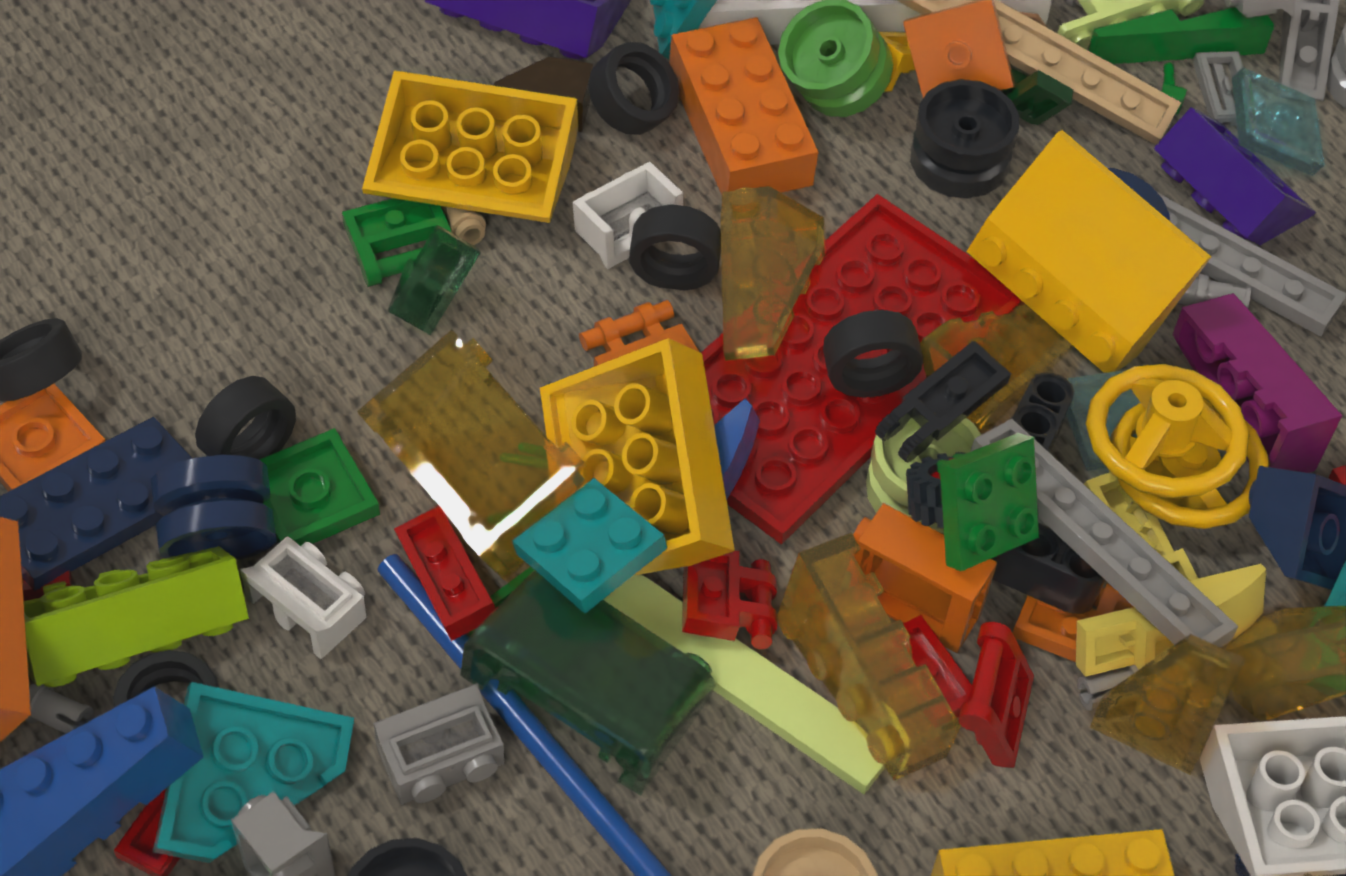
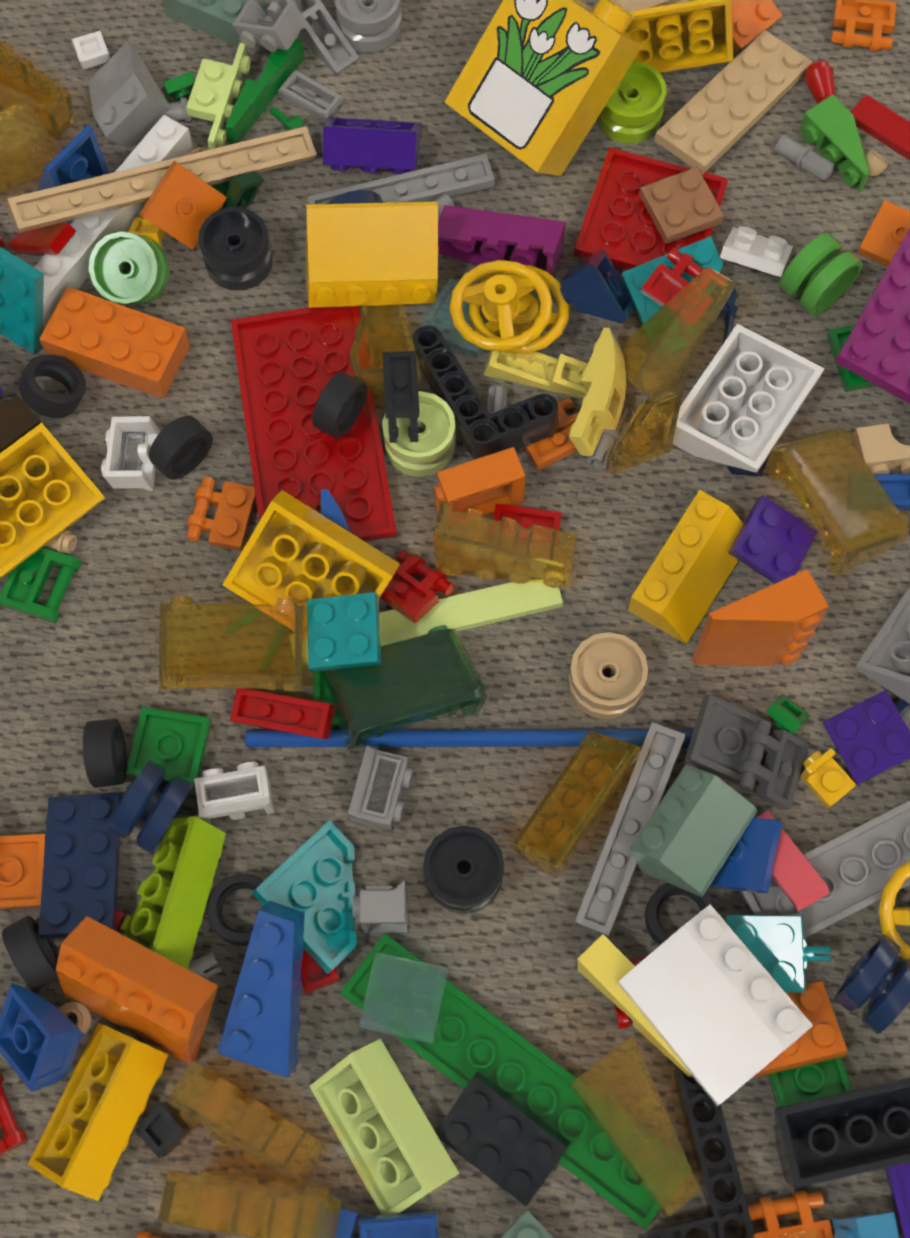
camera: 45 degrees left, 15 degrees up
(432, 279) = (89, 587): clear green slope -> none
(766, 265) = (230, 408): clear yellow wedge -> none
(978, 498) = (476, 428): green plate -> none
(998, 695) = (569, 503): red plate -> none
(1118, 551) = (540, 388): light grey plate -> none
(1277, 122) = (358, 92): clear light blue plate -> none

